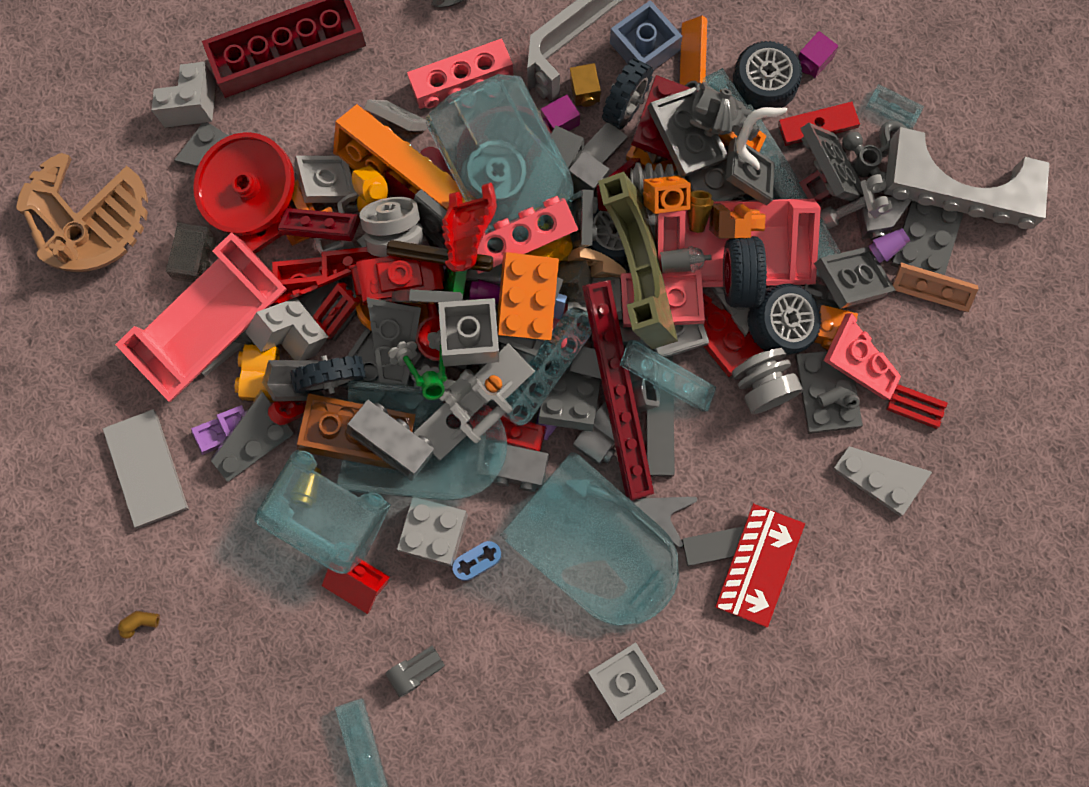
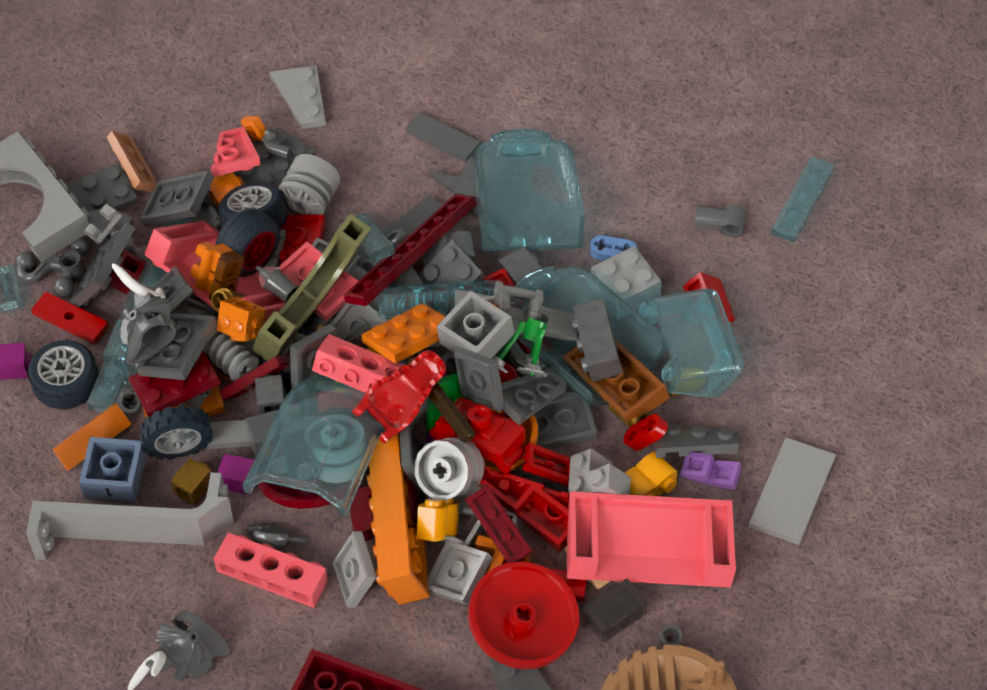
camera: 135 degrees left, 20 degrees down
(130, 269) = (666, 630): none -> dark grey hinge
(134, 620) = (890, 396): pearl gold arm -> none
(279, 383) = (628, 441): flat silver panel -> none
(327, 374) = (598, 409): black wheel -> none
(626, 681) = (590, 113): light grey plate -> none
(760, 565) = (435, 107): red tile -> none
(876, 401) = (254, 127): none -> orange tile
(889, 244) = (129, 204): medium lavender cone -> none
(941, 405) = (225, 100): red tile -> none

